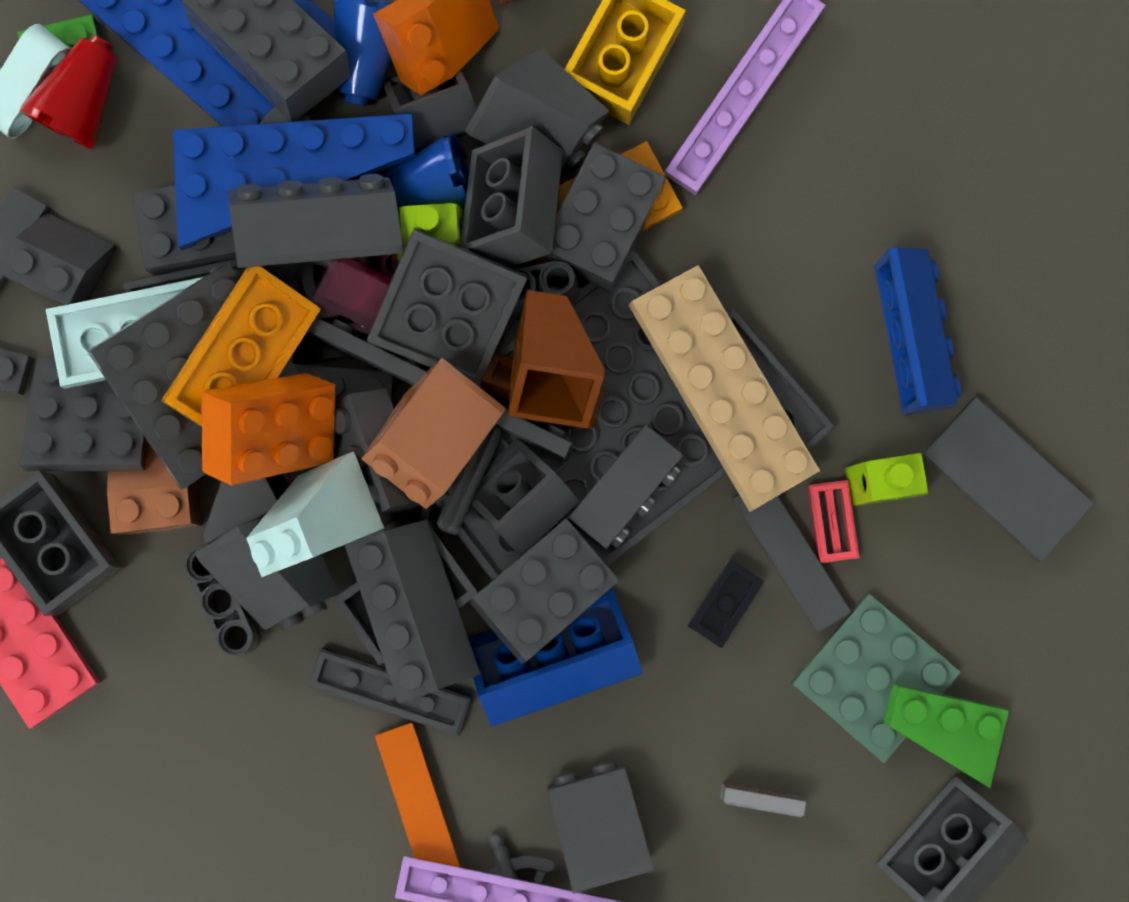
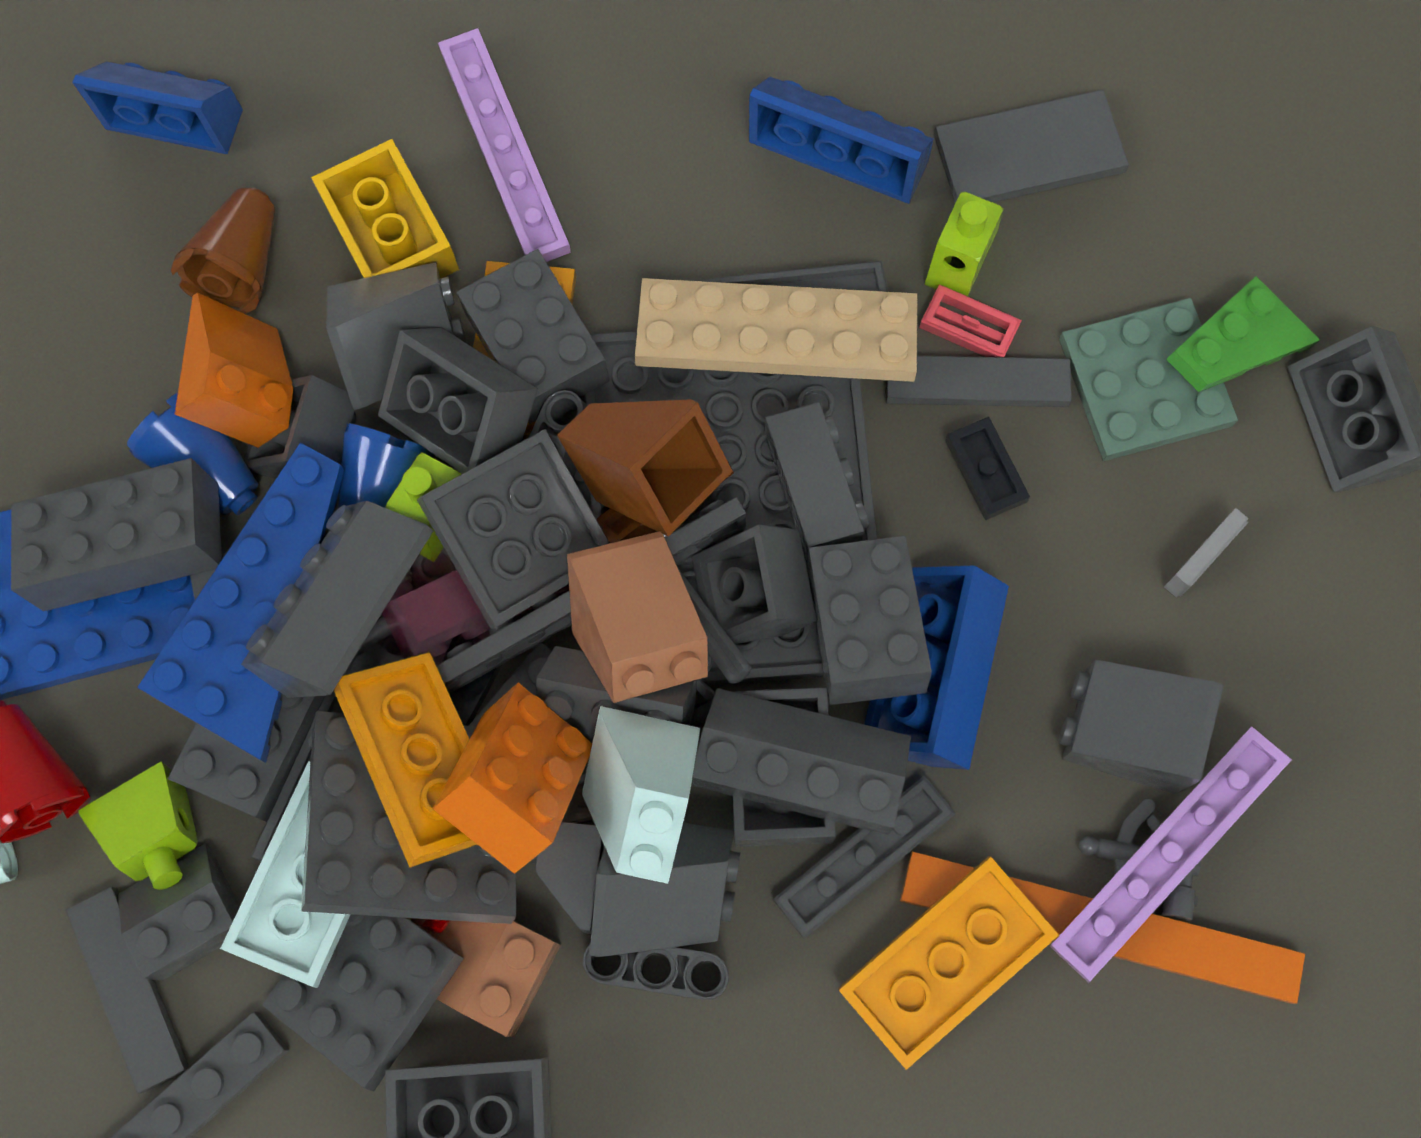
camera: 55 degrees left, 10 degrees down
(94, 199) = (144, 826): none -> lime torso
(350, 793) = (948, 962): none -> light orange plate

